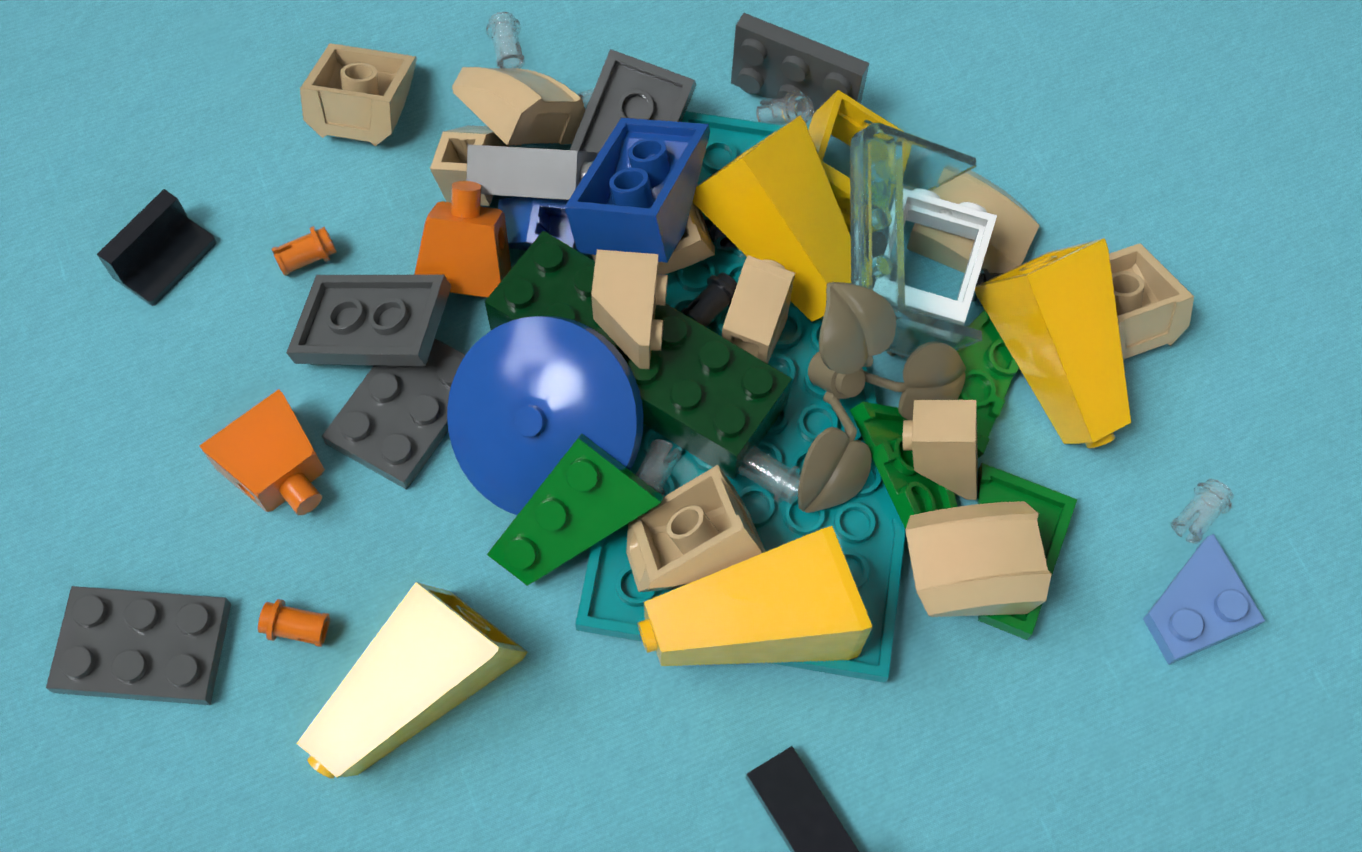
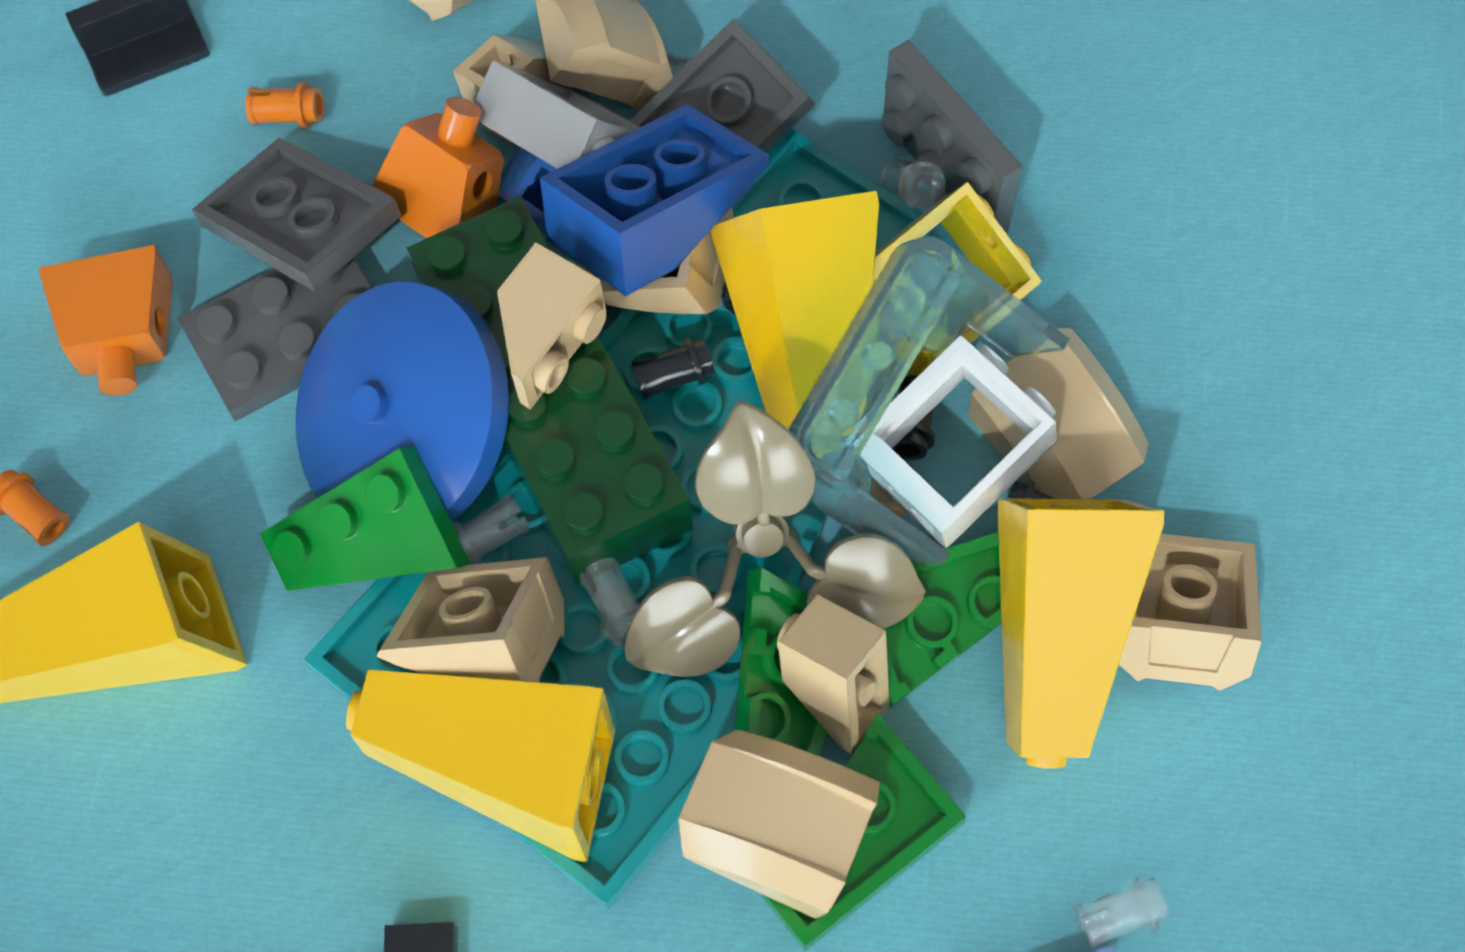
camera: 35 degrees right, 0 degrees up
(759, 307) = (702, 396): tan slope -> none

